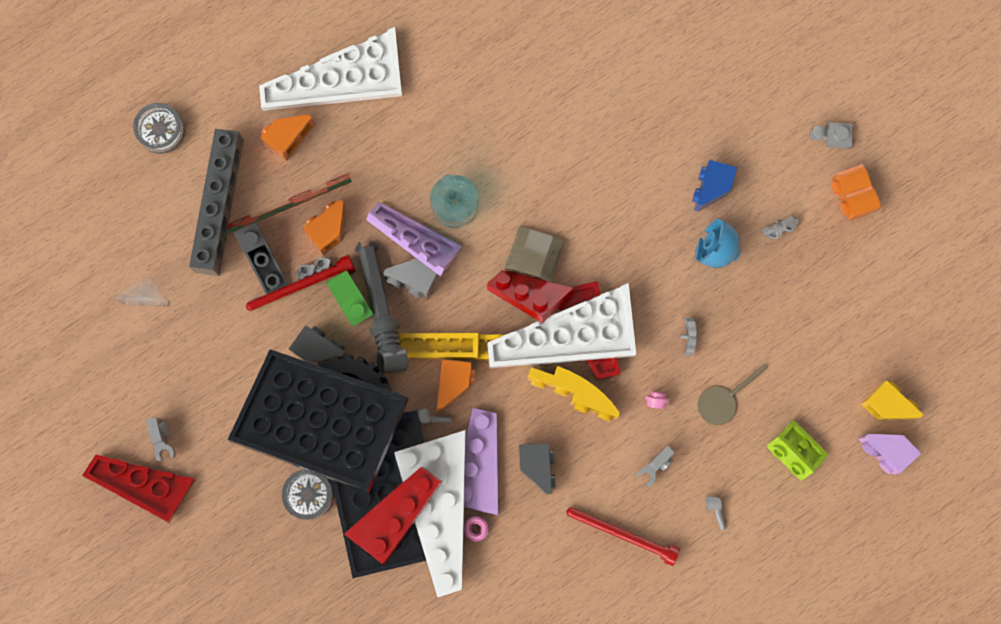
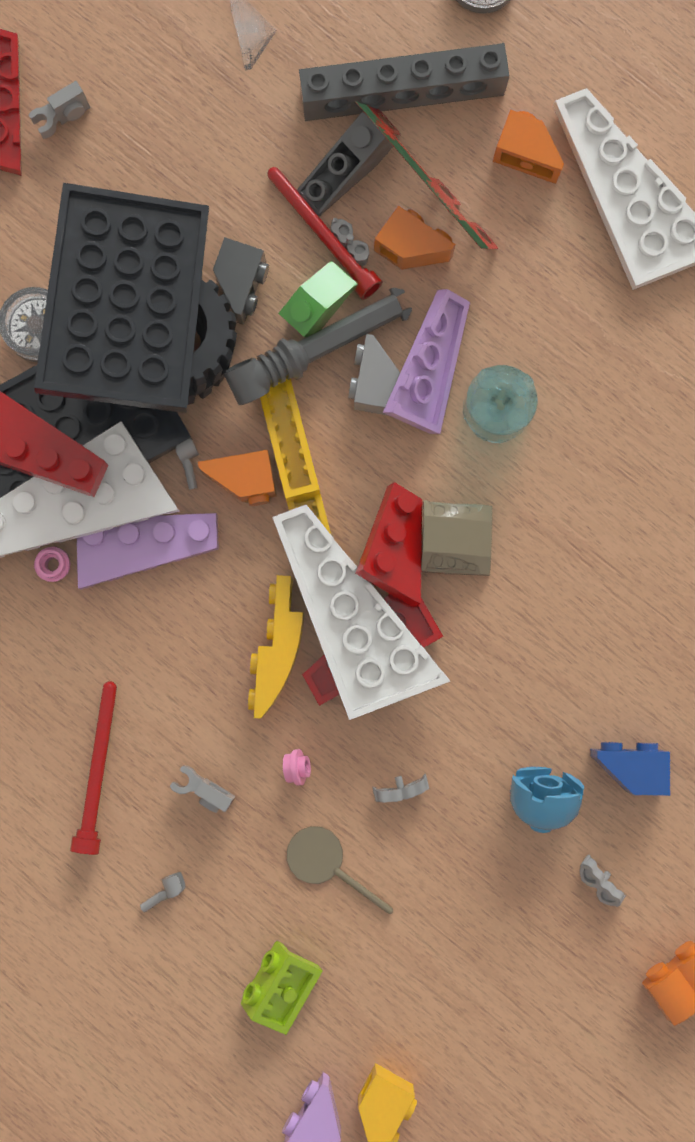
camera: 75 degrees right, 5 degrees up
(535, 465) = (158, 621): dark grey slope -> none

